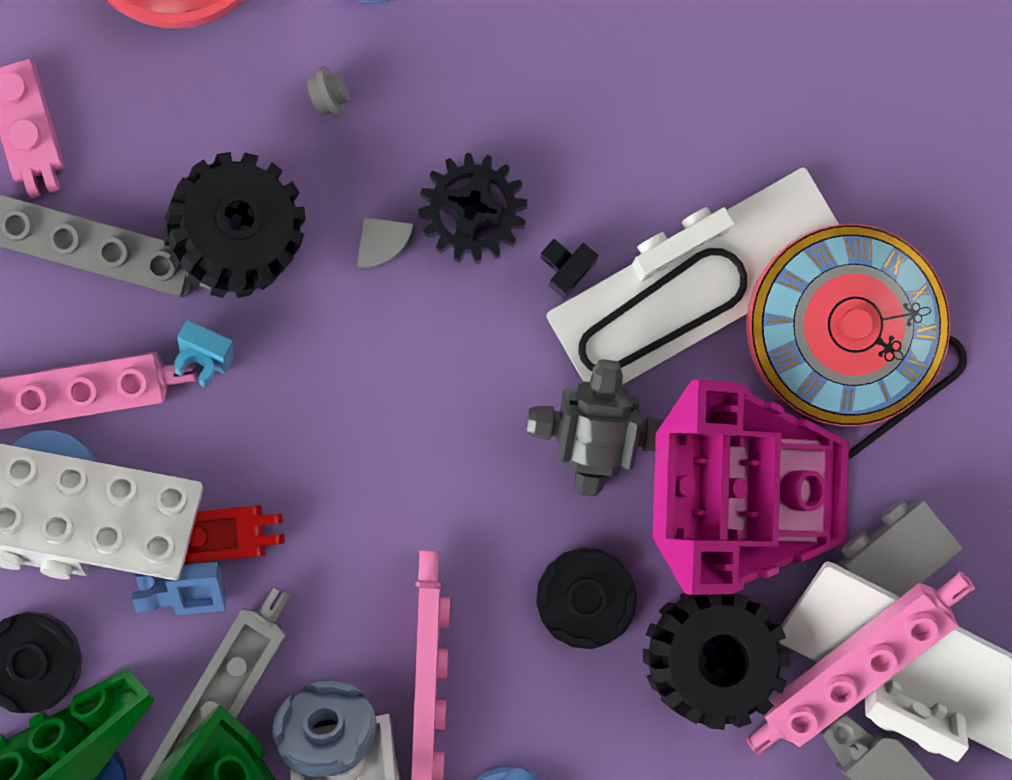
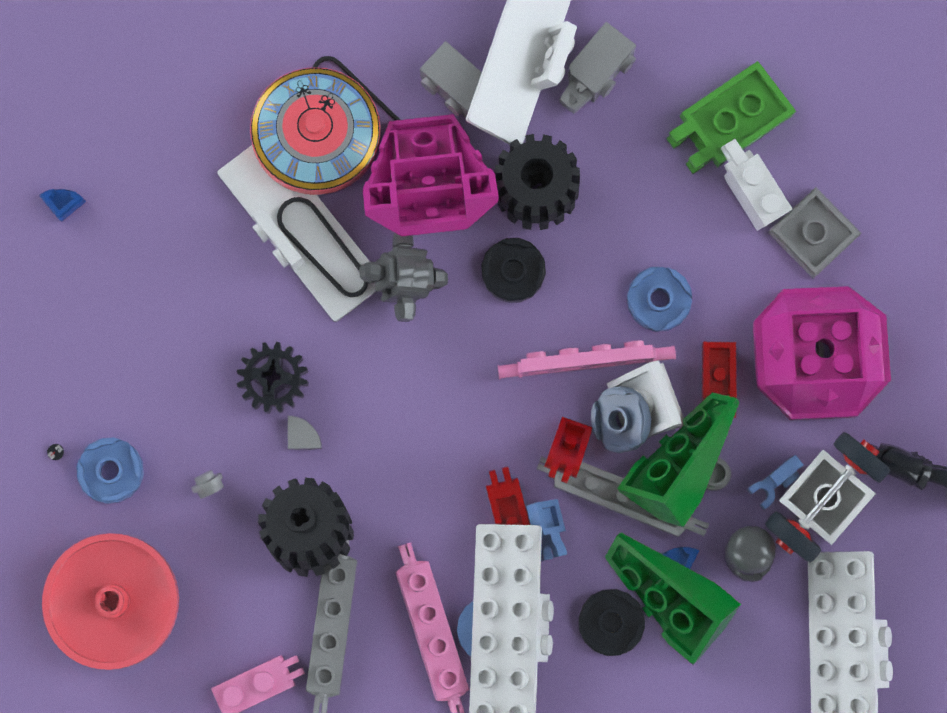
camera: 100 degrees left, 5 degrees down
(205, 348) = (388, 537): medium azure tile -> none
(288, 639) = (568, 449): none -> red hinge
(569, 266) = (302, 310): black tile -> none
(861, 663) = (527, 92): bright pink plate -> none

